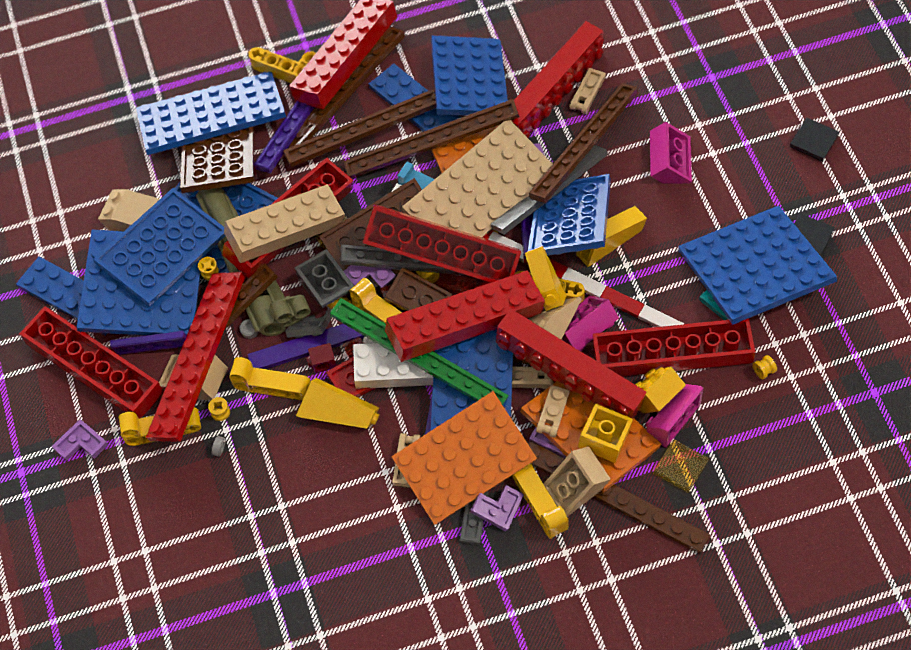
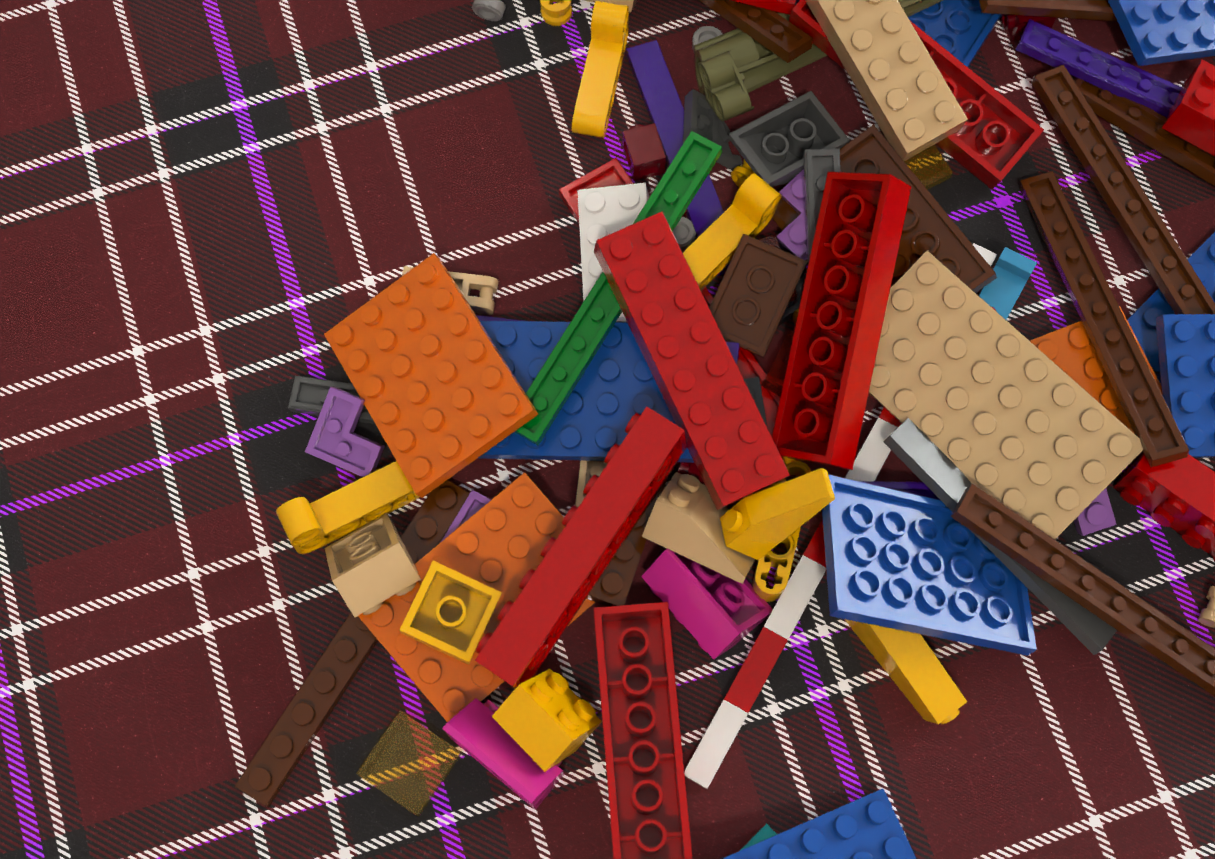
camera: 85 degrees right, 10 degrees up
(334, 405) = (545, 174): yellow slope -> none
(553, 410) = (507, 523): tan plate -> none
(670, 154) = (1103, 786): dark pink slope -> none

